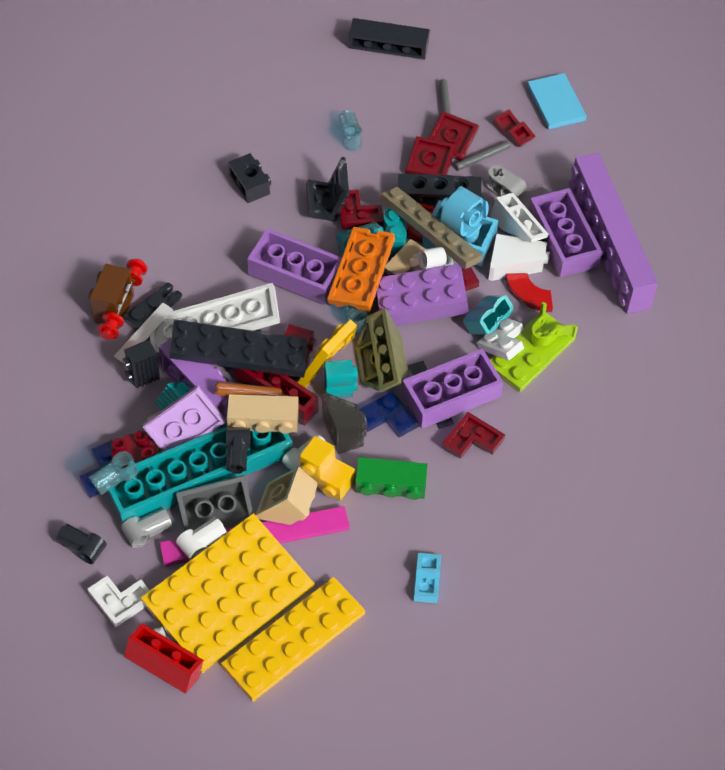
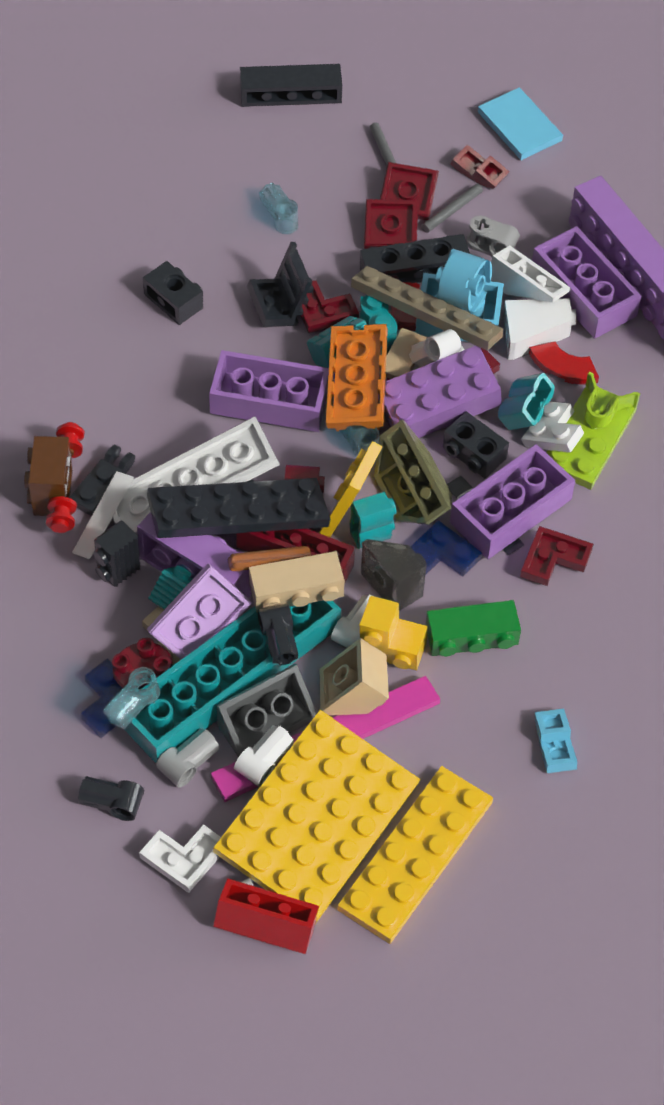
camera: 15 degrees left, 0 degrees up
(442, 337) = (477, 441): none -> black brick

